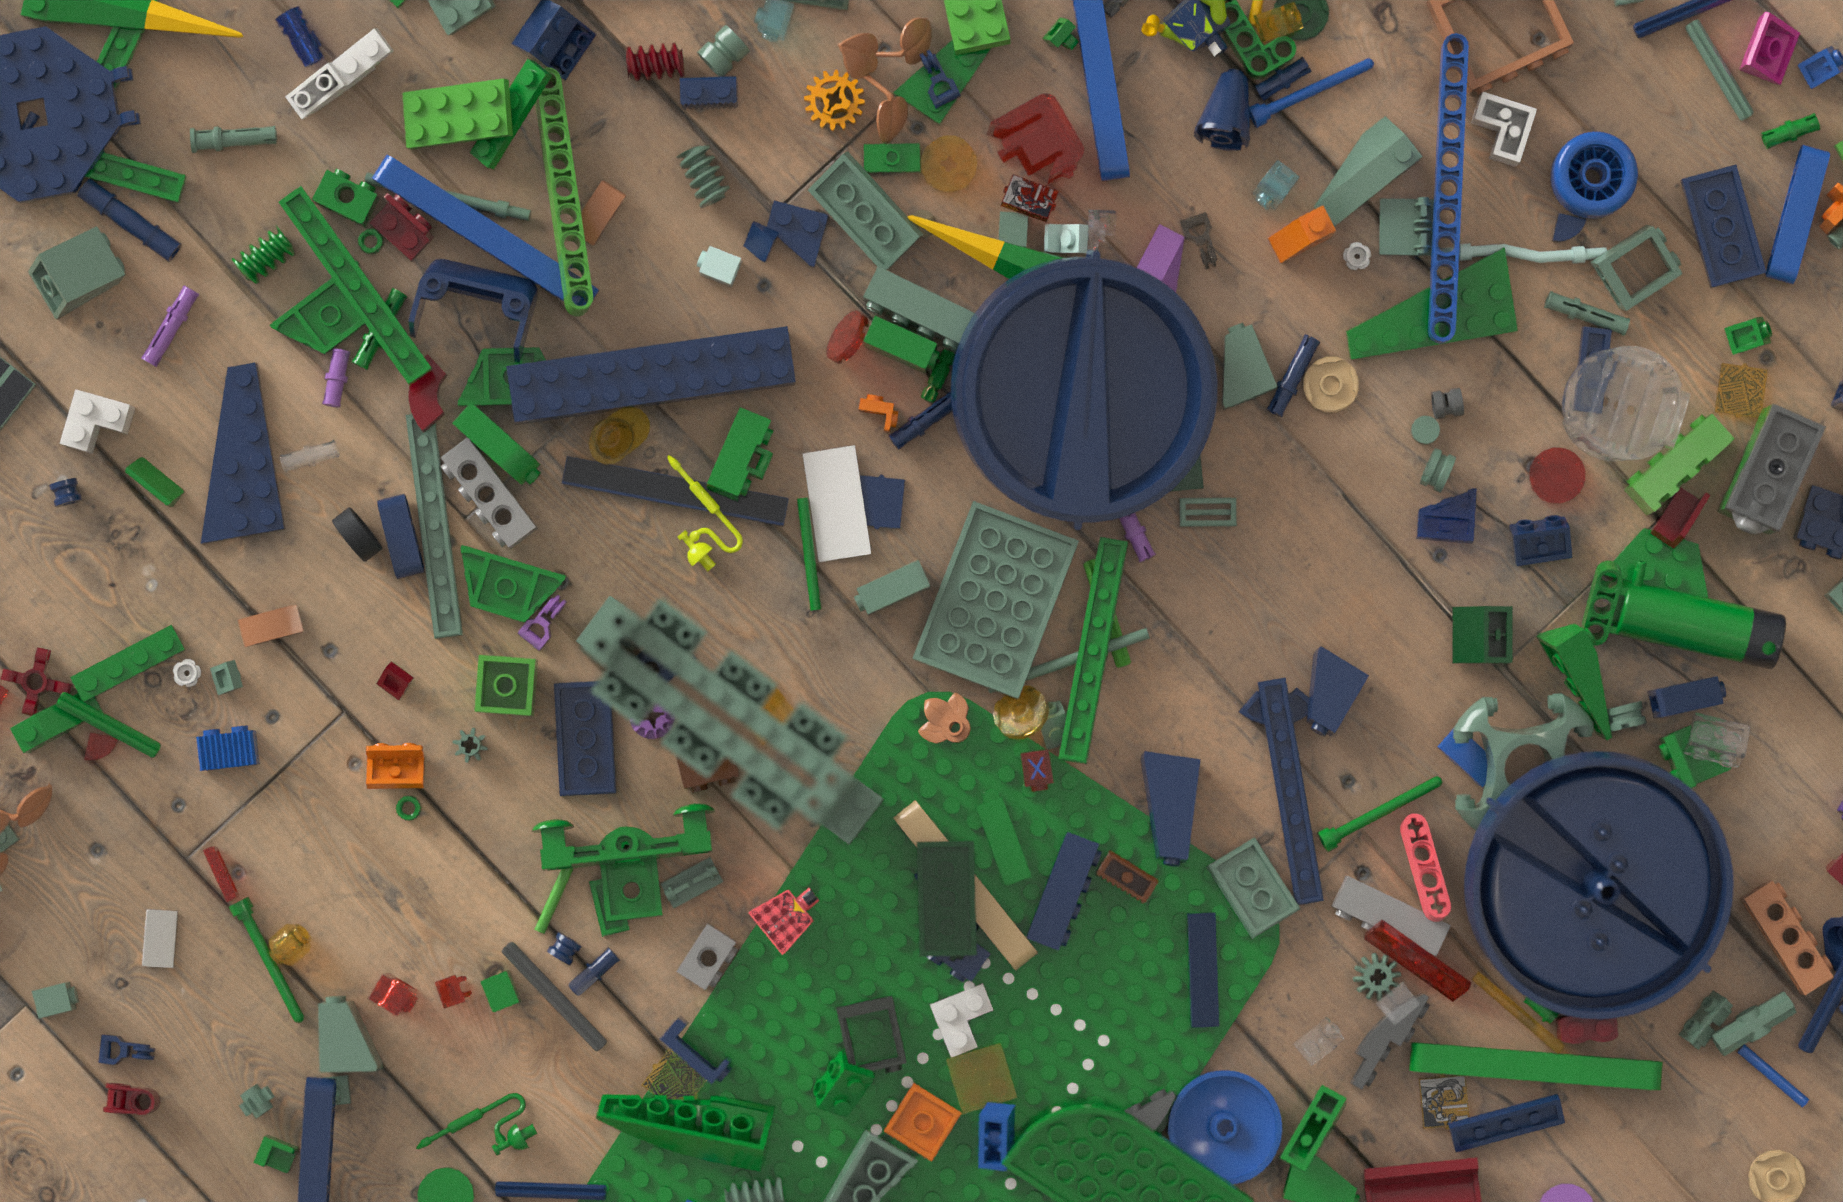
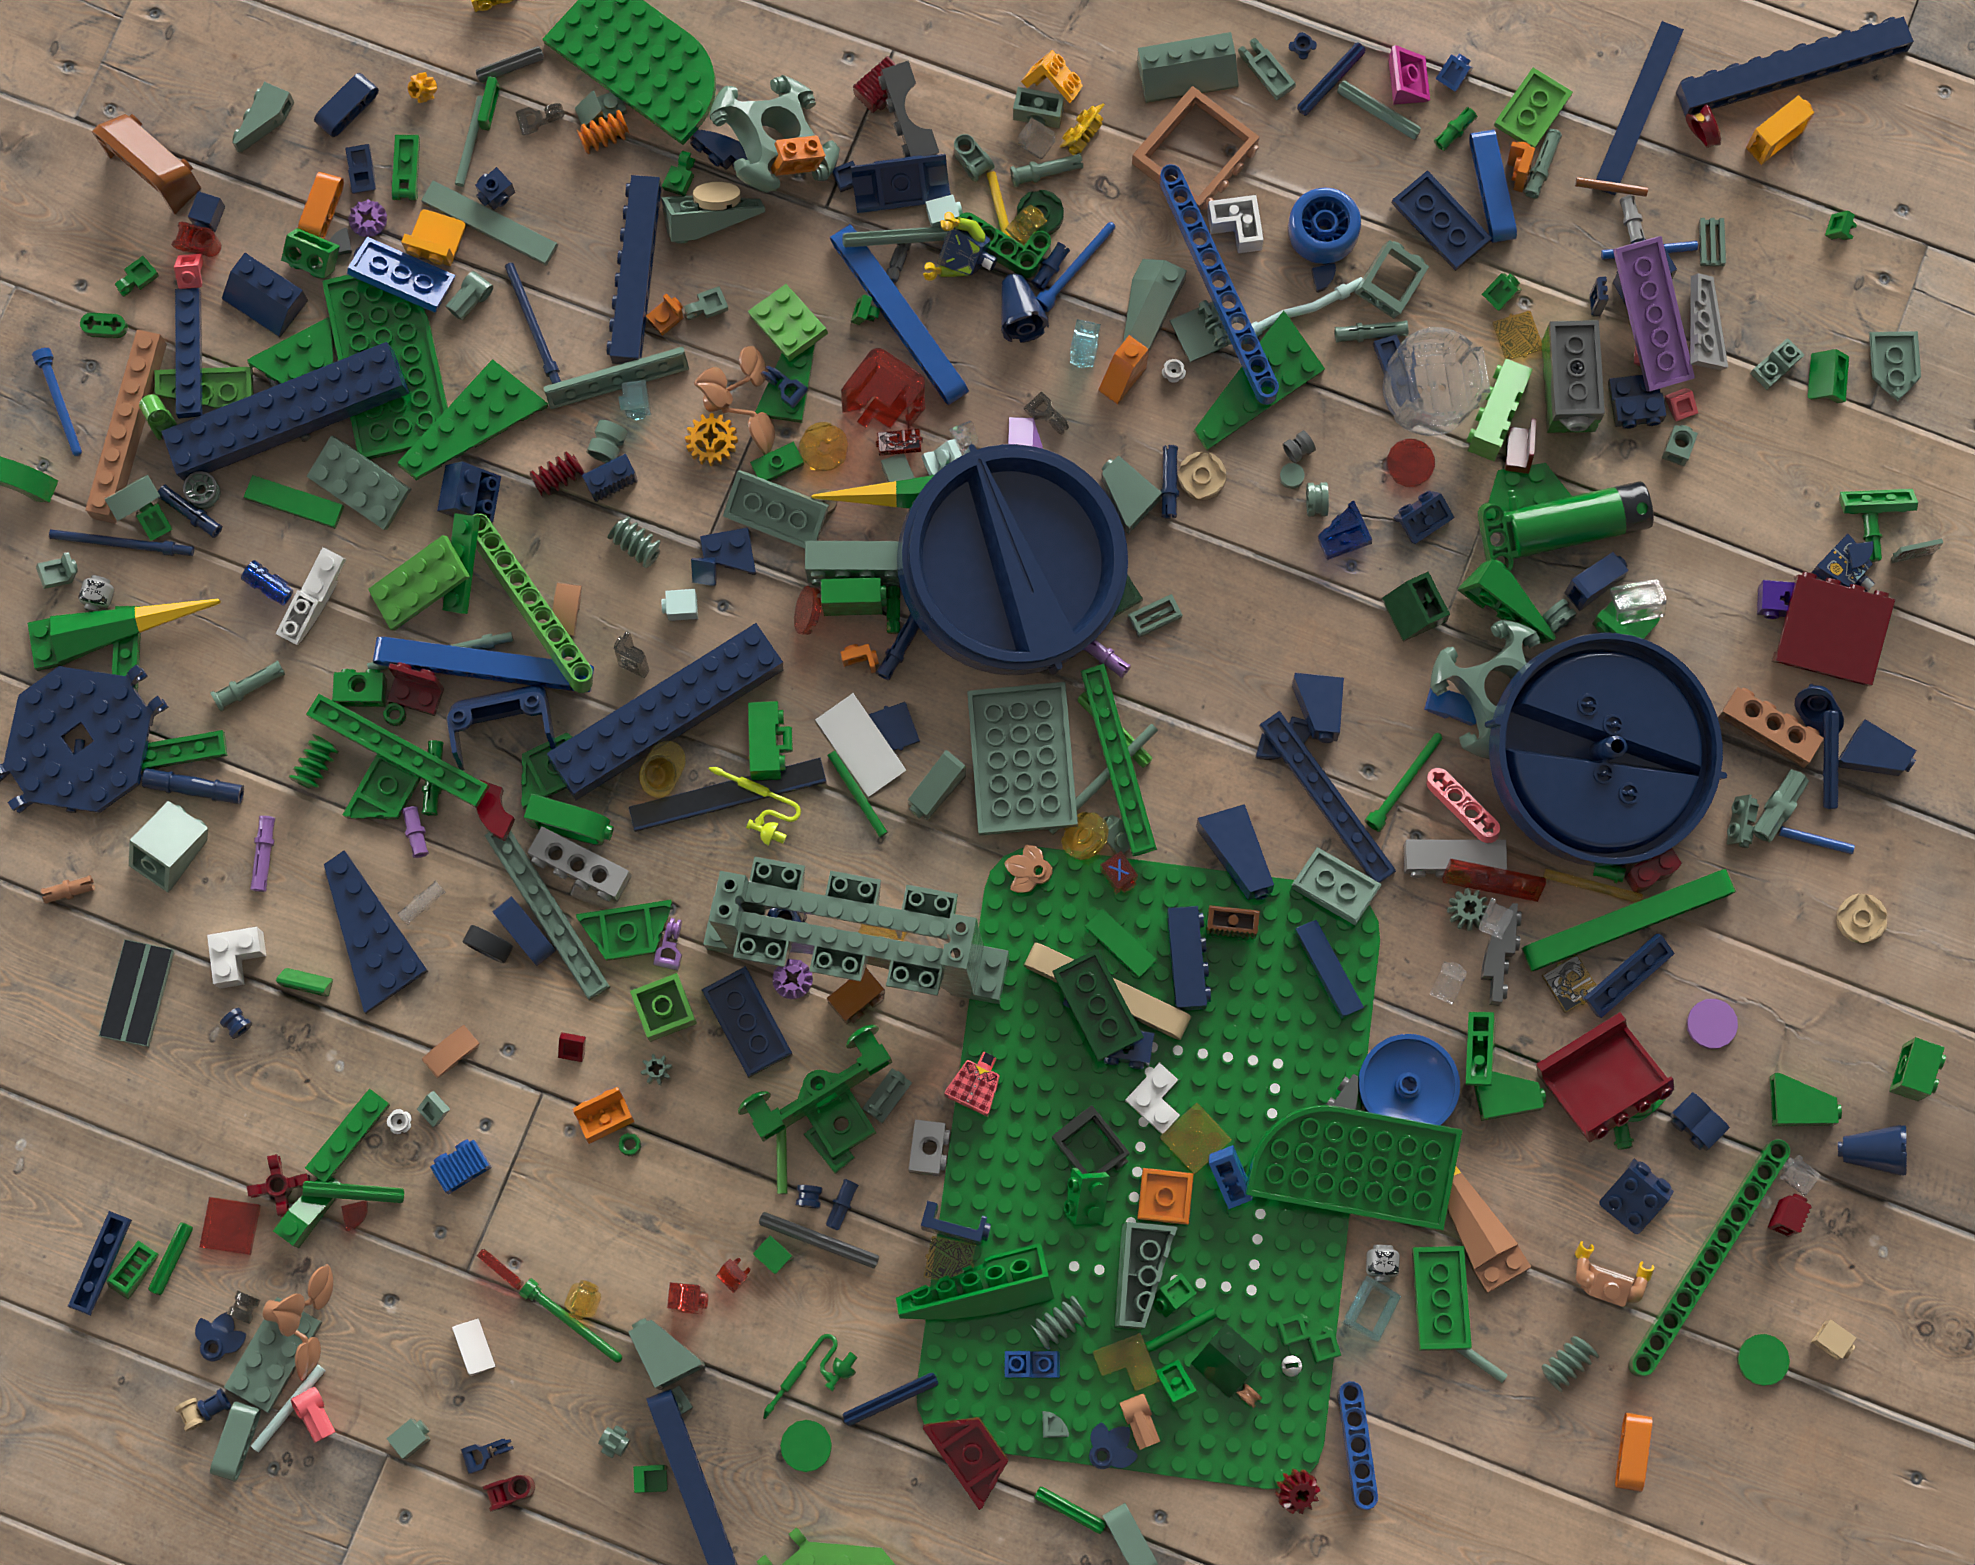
camera: 25 degrees left, 10 degrees down
(641, 302) = (630, 657): none -> clear smoke bracket

